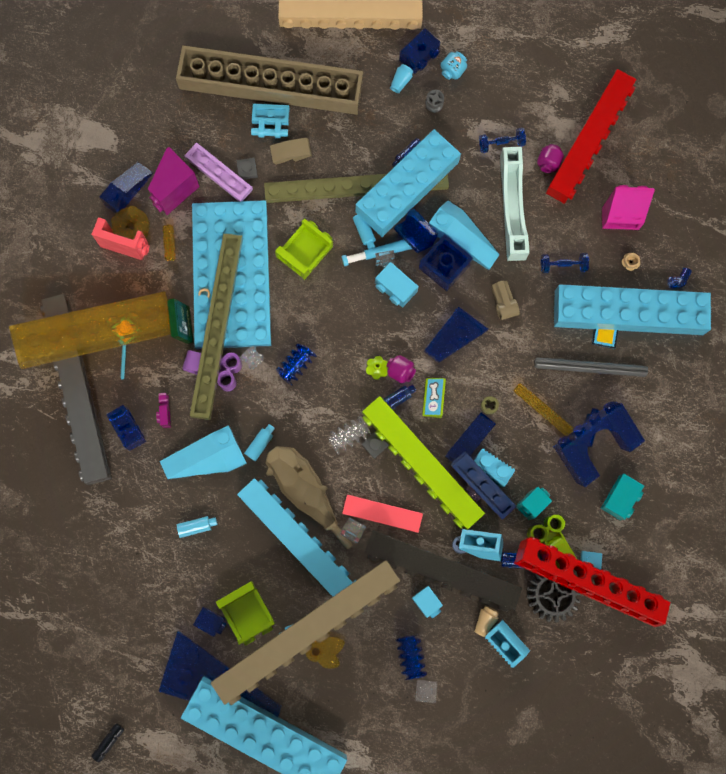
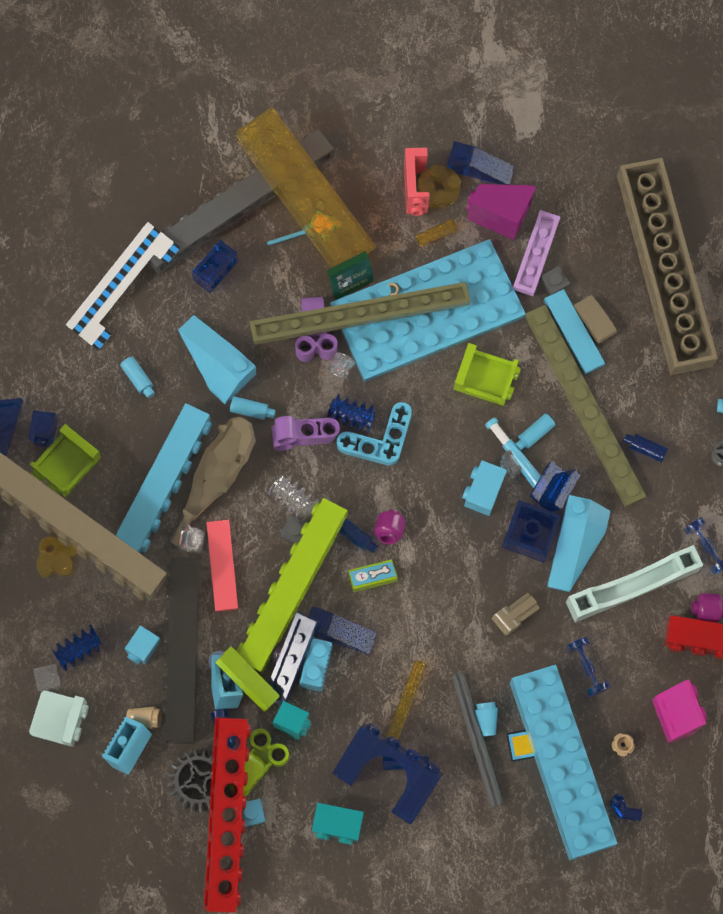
camera: 70 degrees right, 5 degrees down
(105, 515) = (88, 316): none -> white sticker
(163, 416) = (245, 299): magenta plate -> none
(270, 115) = (627, 281): medium azure plate -> none
(294, 170) = (574, 332): none -> medium azure tile
(294, 418) = (288, 432): none -> medium lavender piece
(330, 353) = (380, 446): none -> medium azure beam
(377, 372) = (377, 503): lime plant -> none
(407, 183) = (606, 455): medium azure brick -> none
(454, 335) = (453, 572): clear blue wing -> none
(463, 692) = (59, 718): none -> light aqua bracket
(488, 526) = (247, 679): none -> lime tile
(490, 399) = (394, 639): olive bush -> none
(577, 352) = (487, 718): none -> medium azure cone

